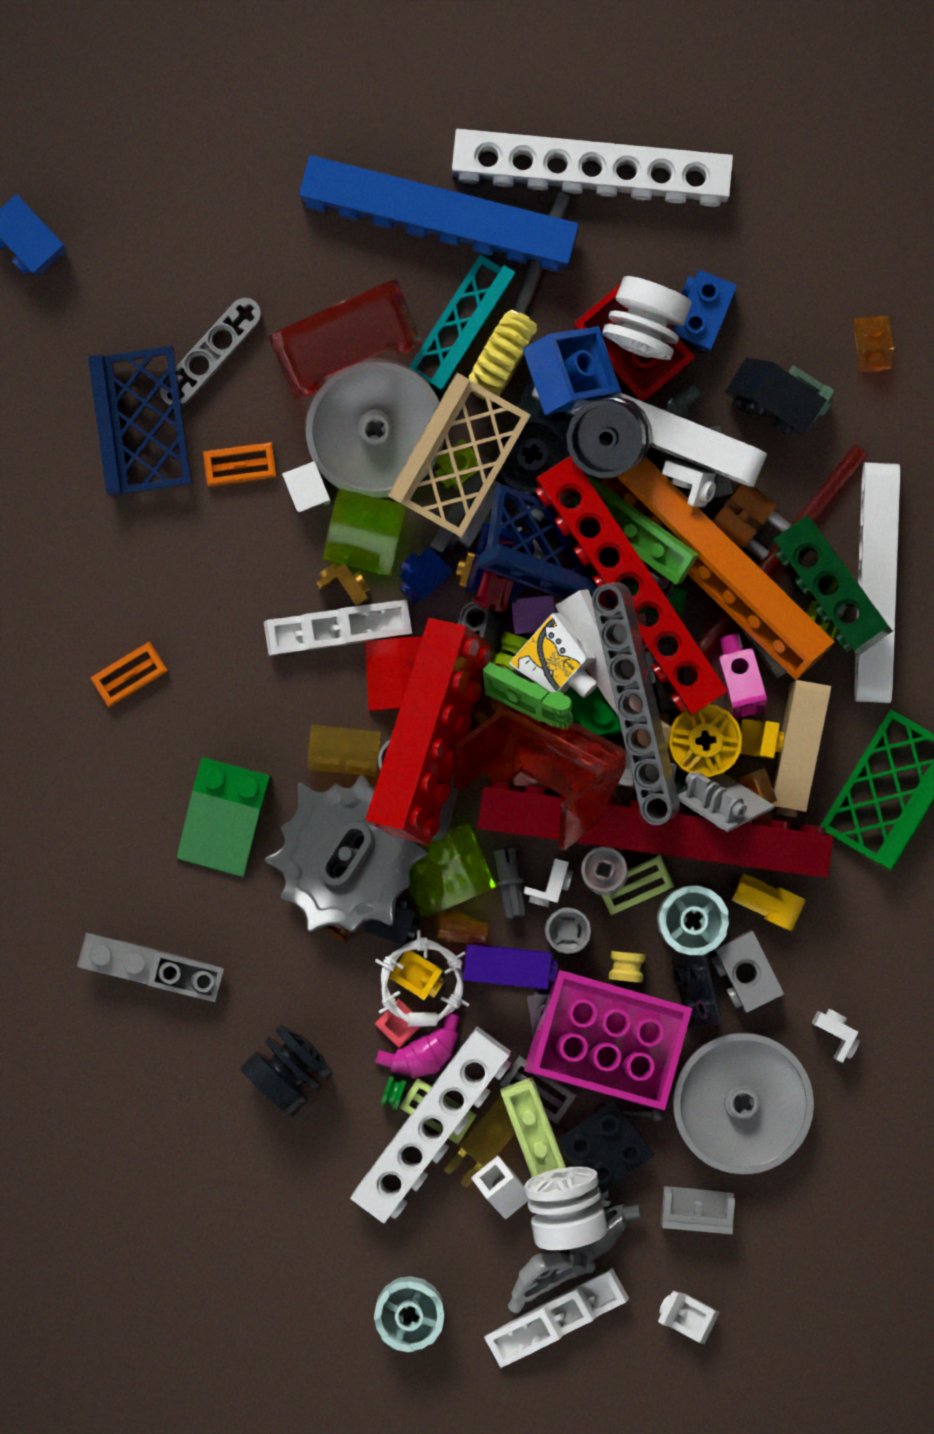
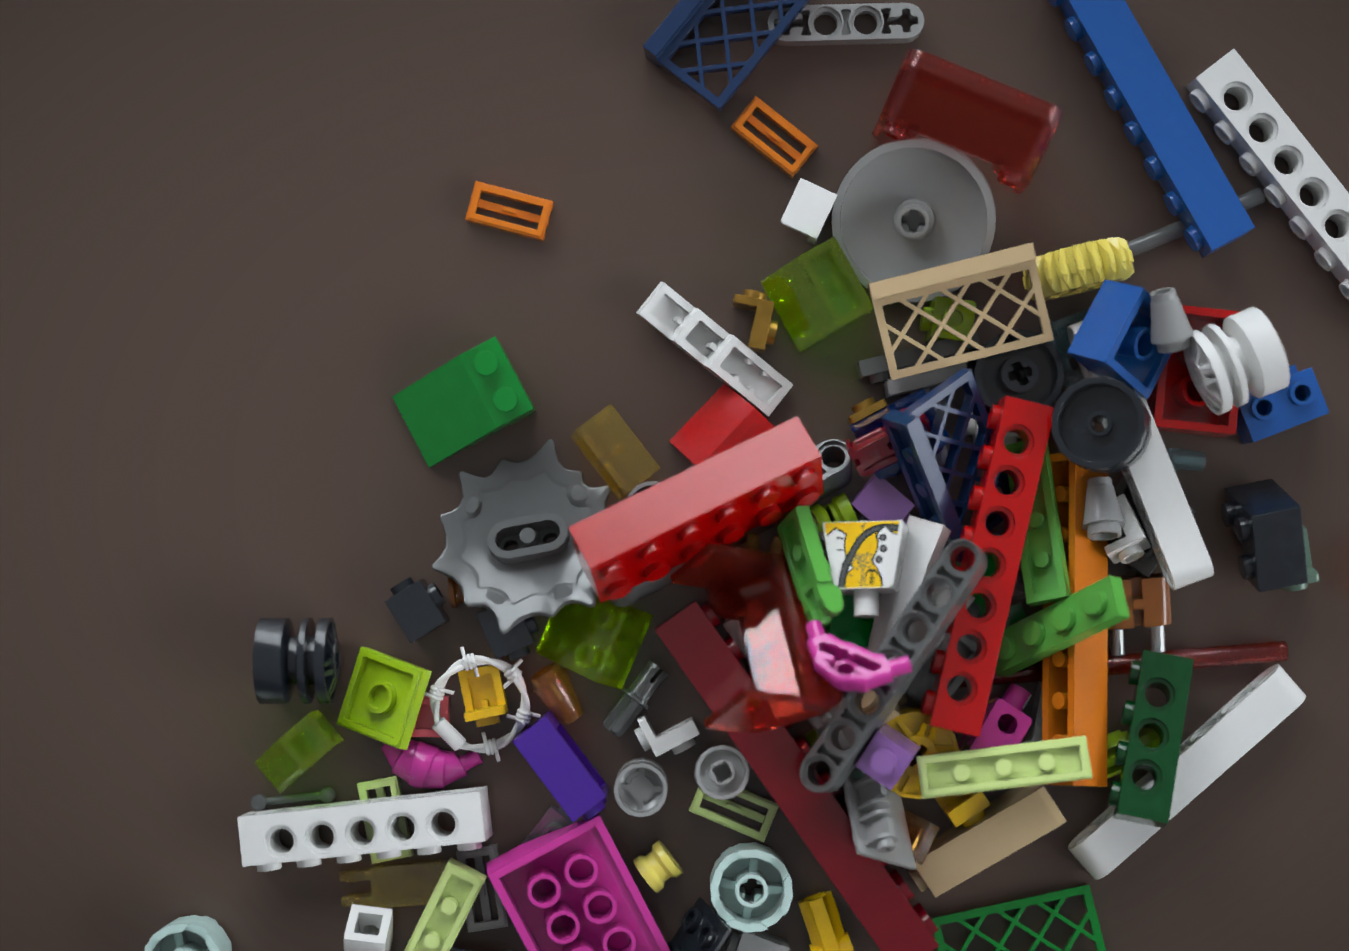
camera: 50 degrees right, 0 degrees up
(150, 967) = (278, 461): light grey slope -> none
(324, 965) = (417, 607): none -> black brick
(344, 1124) = (298, 750): none -> clear neon green slope
(354, 1178) = (260, 801): none -> dark grey hinge
(361, 1039) = (384, 698): none -> lime tile
(393, 1093) = (363, 767): green bush -> none
(423, 576) = (827, 379): clear blue brick -> none
(474, 323) = (1078, 222): teal fence -> none
(584, 337) = (1169, 322): none -> light grey cone
(607, 729) = (849, 665): none -> dark pink piece
(664, 485) = (1102, 511): none -> light grey cone
(688, 757) = (887, 756): none -> medium lavender brick
(708, 578) = (1062, 625): none -> bright green plate
(761, 693) = (1004, 767): none -> yellowish green tile

